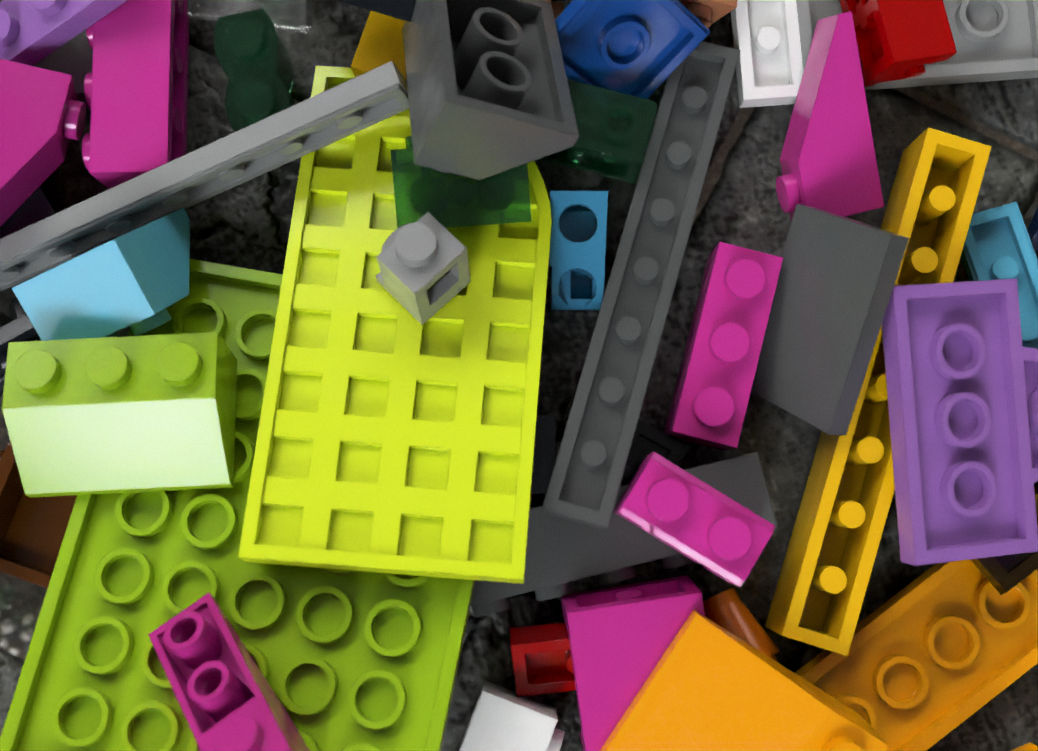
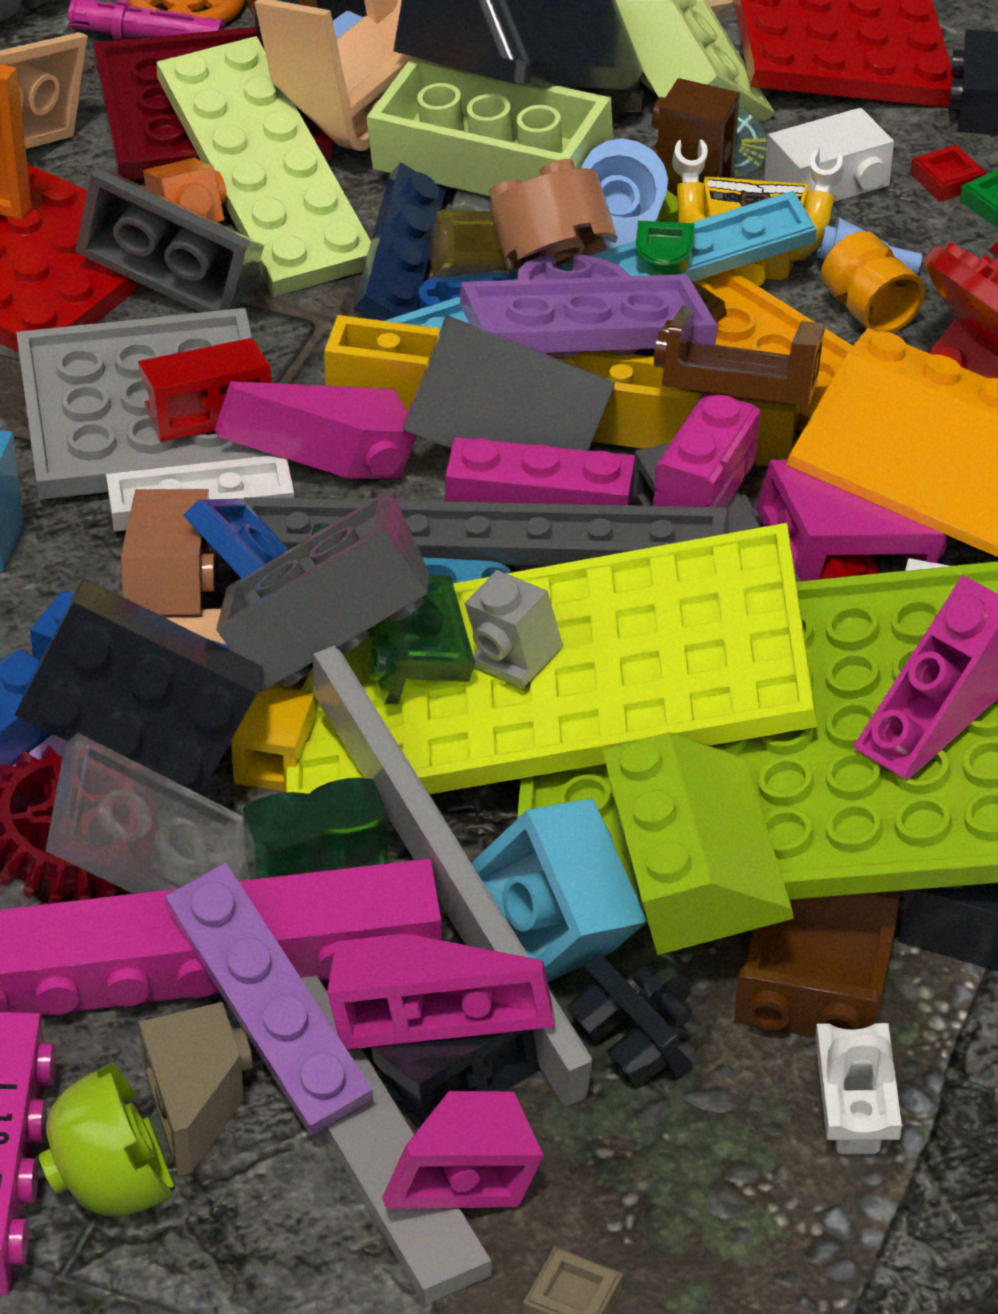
camera: 100 degrees left, 40 degrees down
(821, 577) = (739, 370): none -> reddish brown panel

